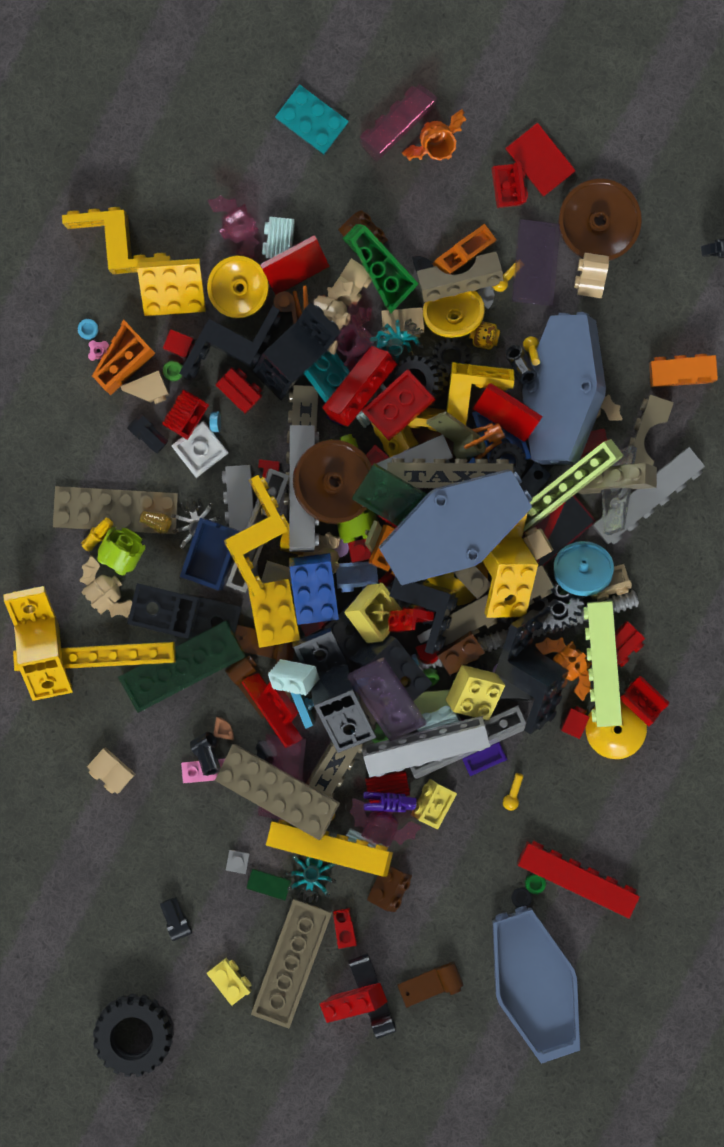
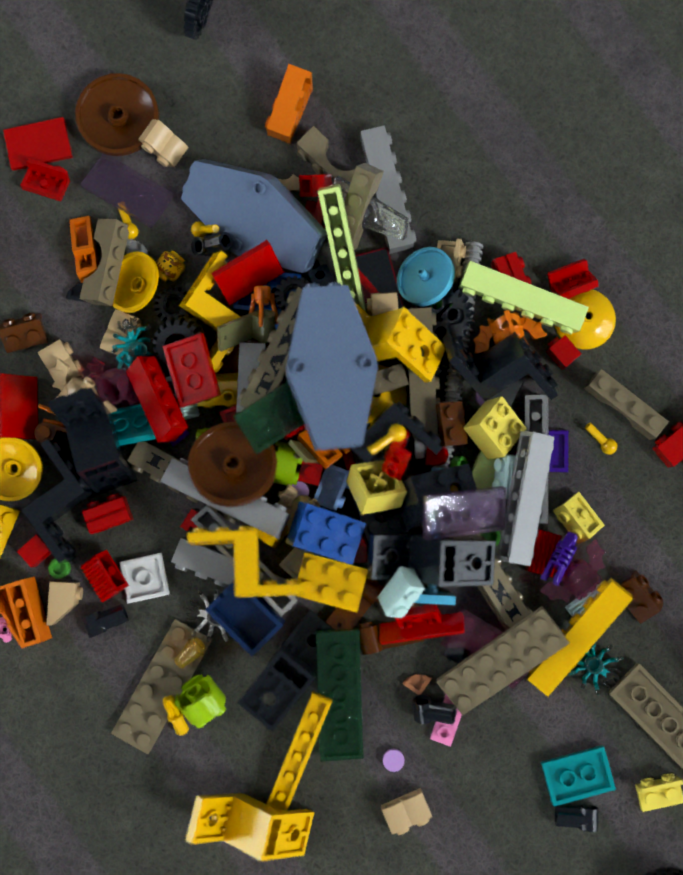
camera: 70 degrees left, 5 degrees down
(103, 591) = (232, 737): tan helmet -> none
(148, 739) = (393, 760): none -> lavender tile
(210, 904) = (578, 775): none -> teal plate
(215, 421) = (125, 551): medium azure tile -> none
(237, 861) = (549, 729): light grey plate -> none
(268, 884) = (583, 710): dark green tile -> none
(344, 928) = (659, 658): red leg -> none
(385, 271) = (61, 324): green wedge -> none
(425, 608) = (395, 433): none -> yellow bar
(554, 799) = (614, 394): none -> dark tan arch
(619, 430) = (311, 183): none -> red brick

